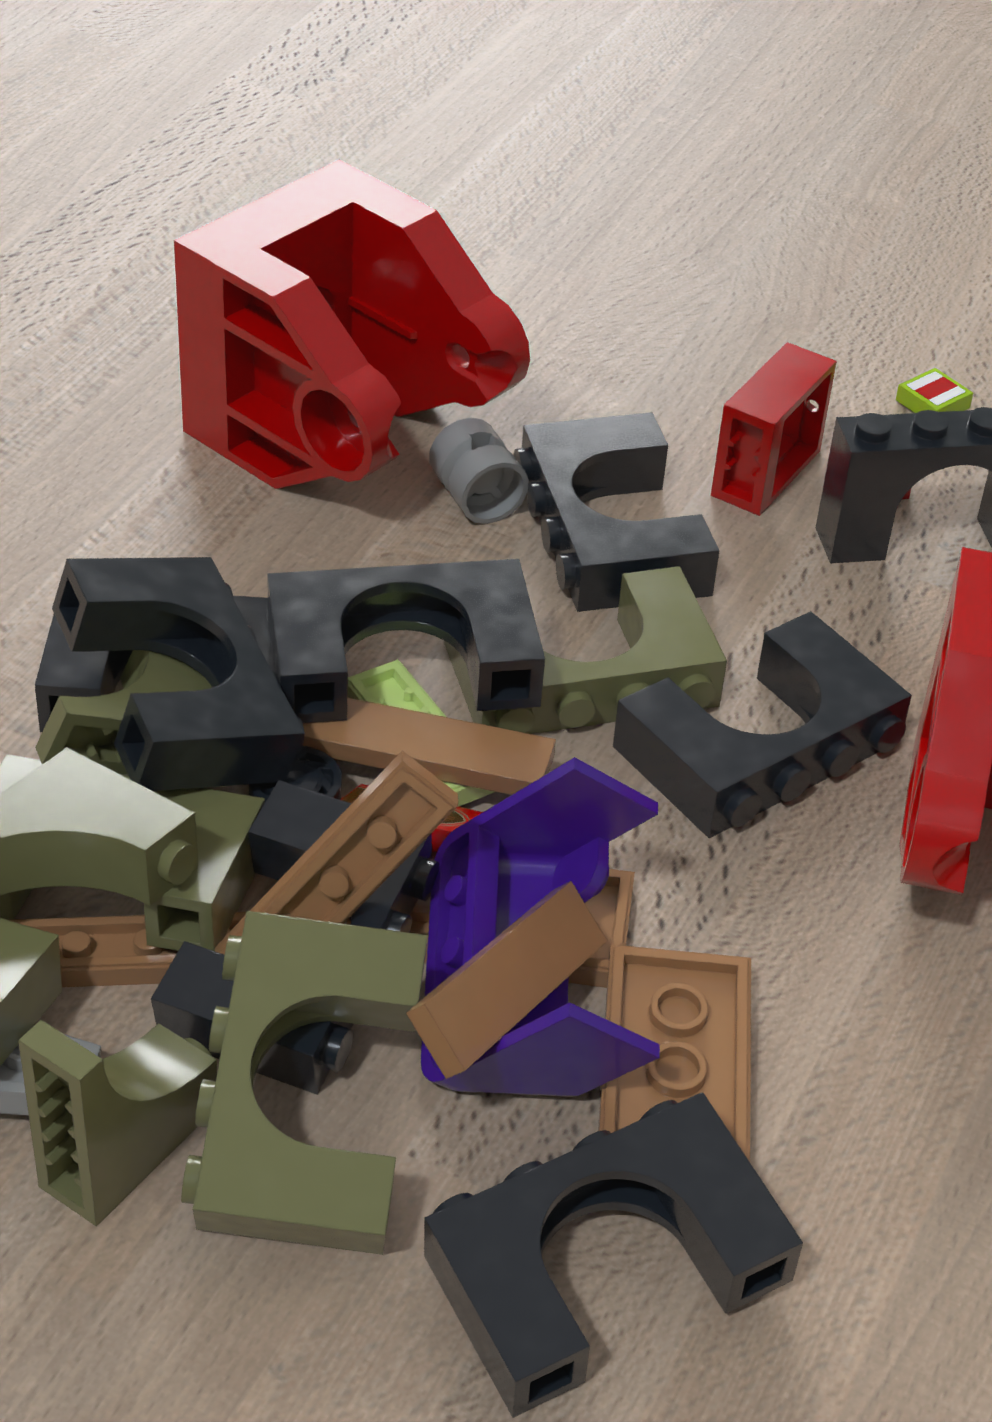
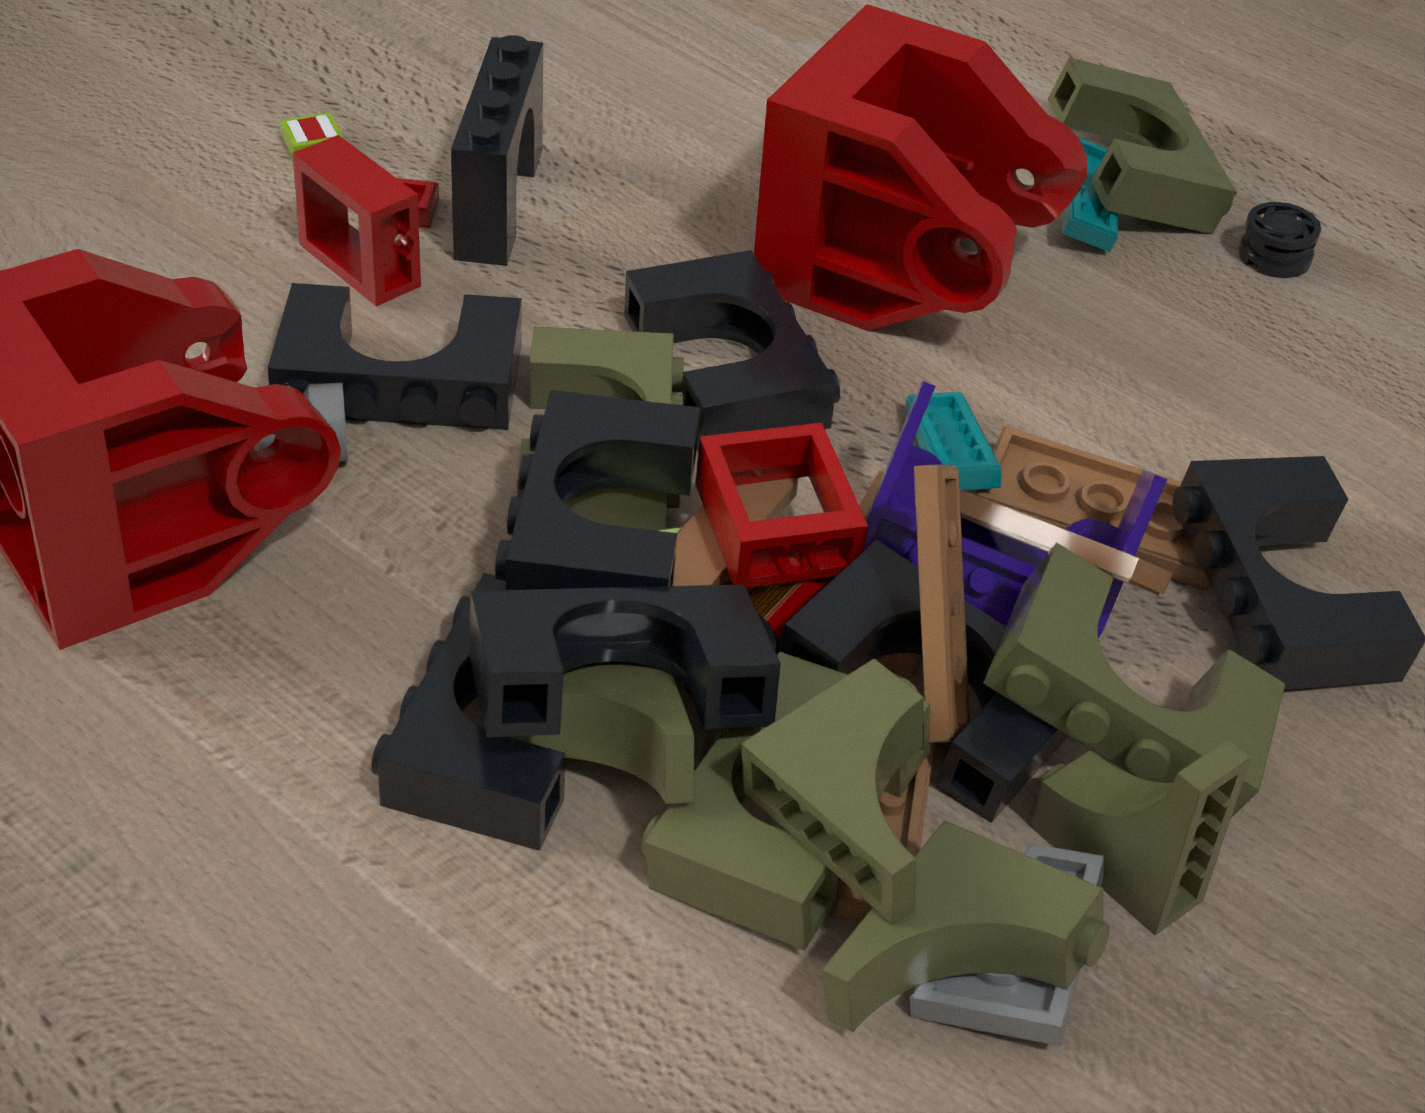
camera: 75 degrees left, 0 degrees up
(451, 710) = (760, 549): none -> red window
(699, 916) = (957, 439): none -> teal plate

